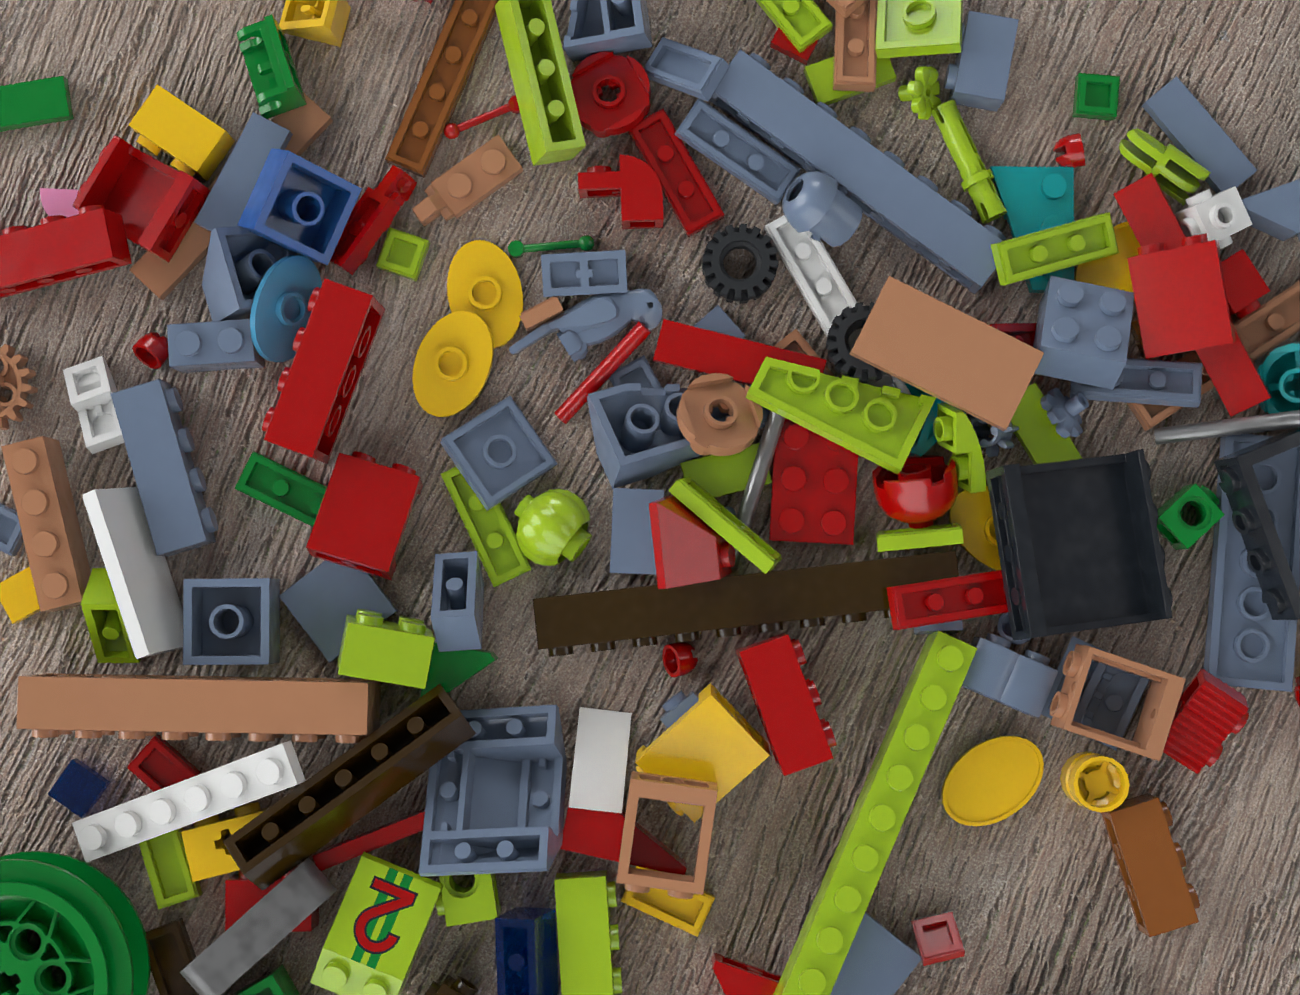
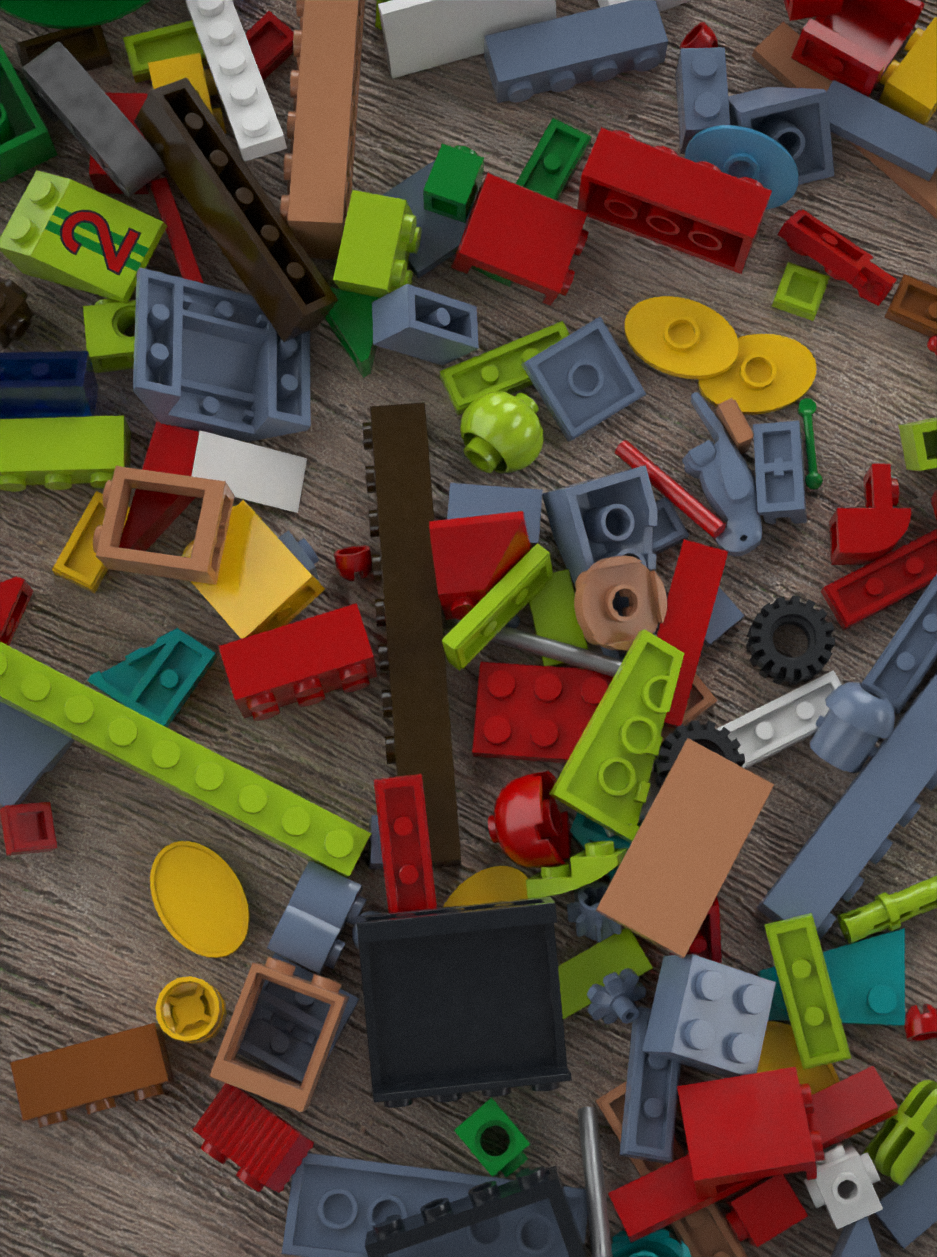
camera: 90 degrees right, 10 degrees down
(231, 621) = (412, 105): sand blue brick -> none
(299, 206) = (849, 179): blue brick -> none
(308, 579) = (453, 182): none -> green brick
(468, 182) = (879, 359): nougat hinge -> none
(795, 832) = (157, 677): none -> teal wing
(919, 538) = (476, 818): lime tile -> none

